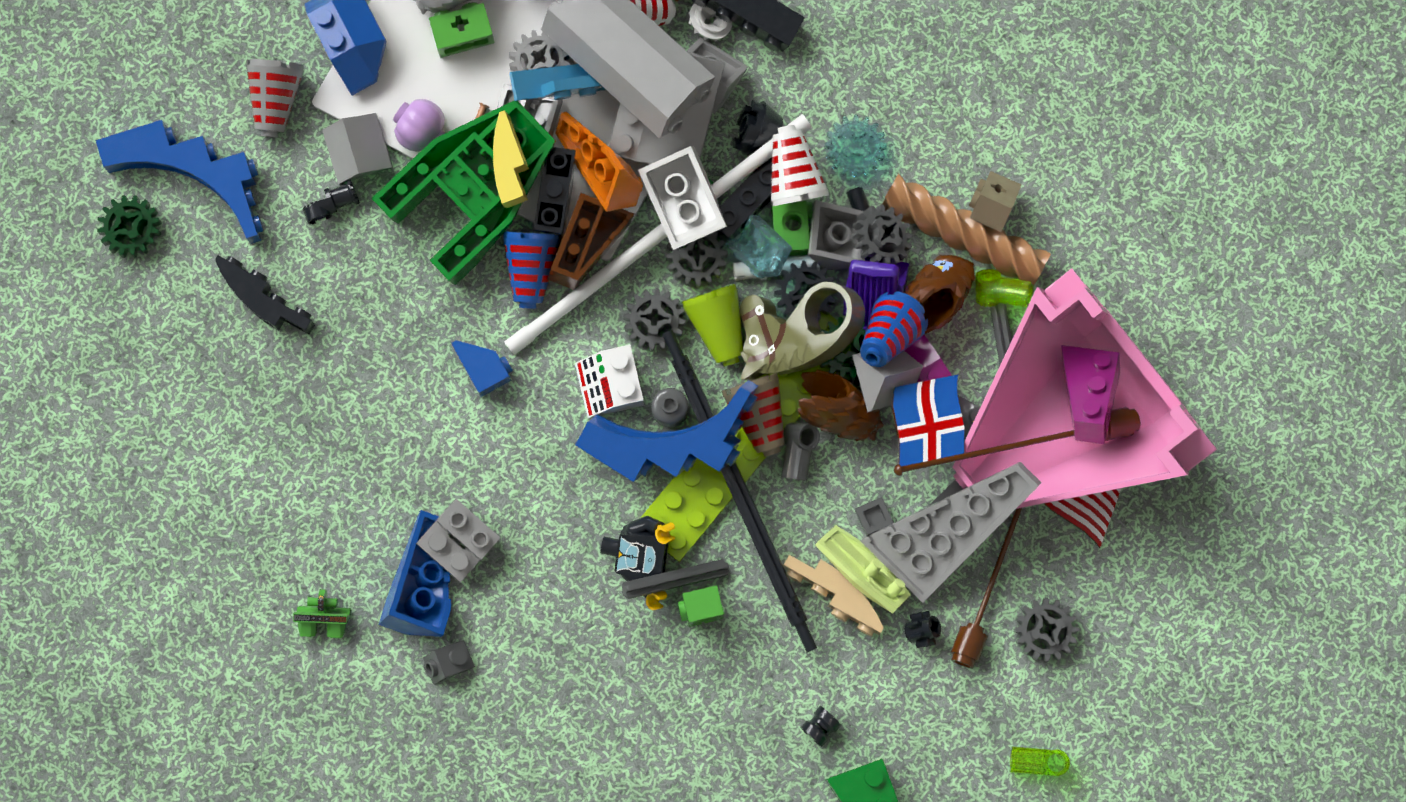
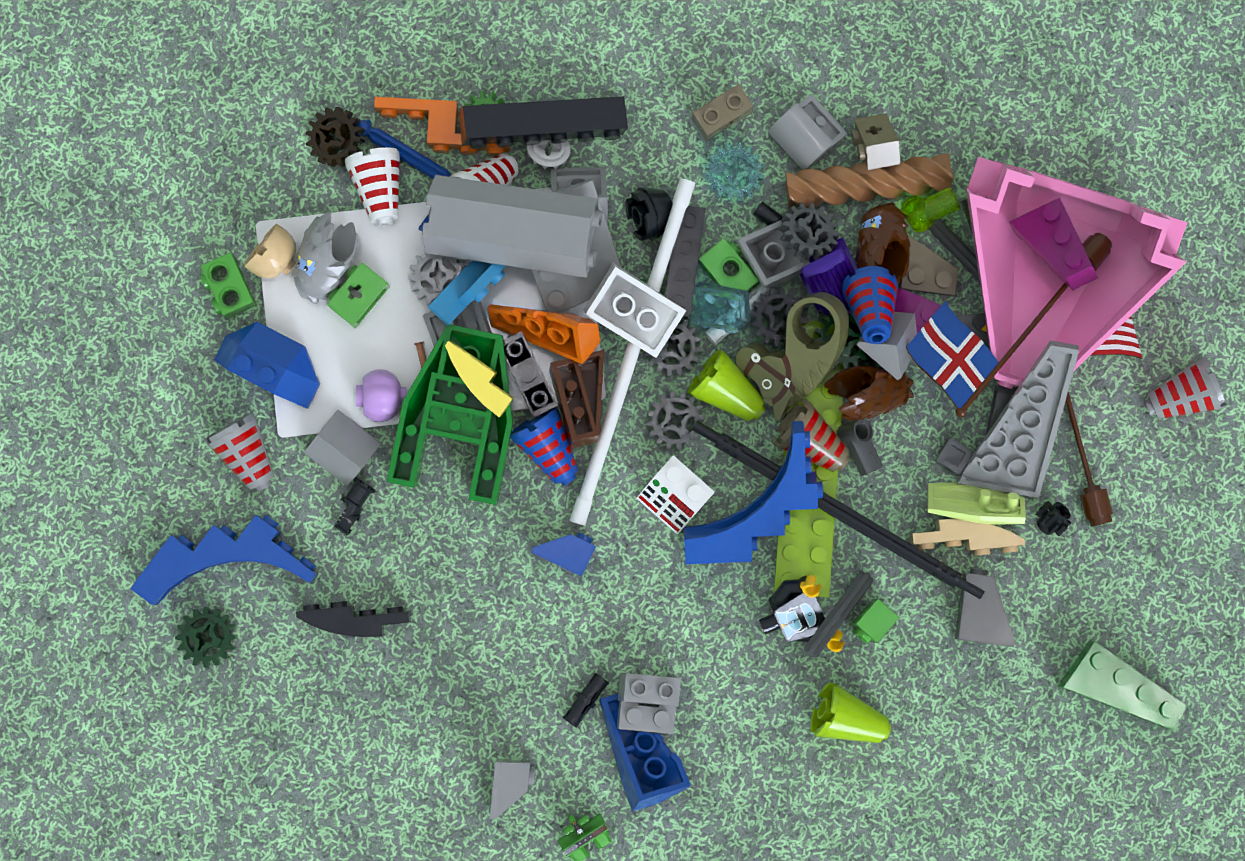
camera: 35 degrees left, 5 degrees up
(289, 526) = (509, 784): none -> light grey slope
(408, 503) = (585, 700): none -> black pin
(448, 661) = (706, 801): dark grey bracket -> none
(621, 675) = (847, 717): none -> lime cone
(669, 407) = (737, 482): dark grey head -> none
(794, 169) = (708, 228): white cone -> none
(801, 672) = (983, 618): none -> slope
(825, 721) = (1030, 642): black wheel -> none
(880, 88) = (722, 112): none -> dark tan brick
(942, 154) = (807, 132): none -> light grey brick
(963, 343) = (929, 272): none -> dark tan wing
(1035, 761) = (1209, 559): clear neon green piece -> none
(1052, 643) = (1157, 458): dark grey gear -> none
(1117, 602) = (1187, 392): none -> light grey cone

